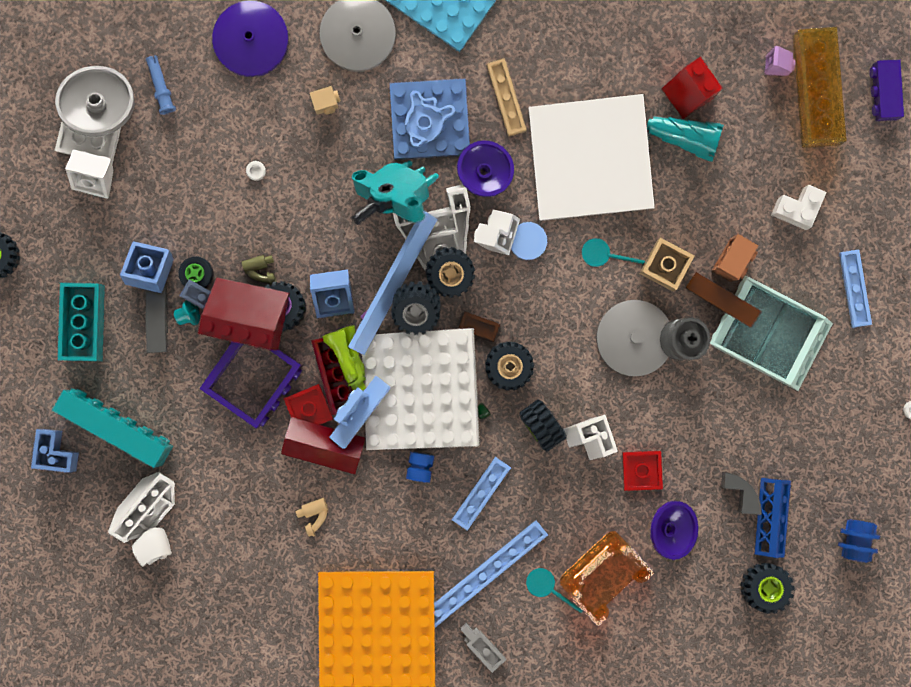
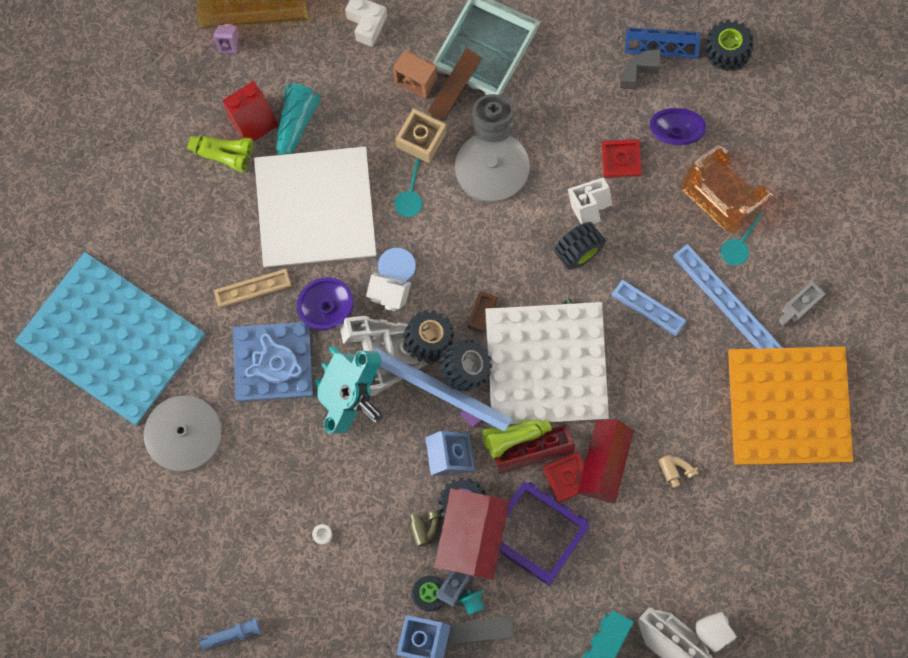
camera: 85 degrees left, 15 degrees down
(260, 52) = (188, 559): dark purple dish -> none
(325, 100) = (252, 462): tan brick -> none
(357, 411) = (570, 421): light blue bracket -> none
(420, 467) = (624, 364): blue wheel -> none
(509, 366) = (521, 280): black wheel -> none
(658, 52) = (213, 148): none -> lime piece

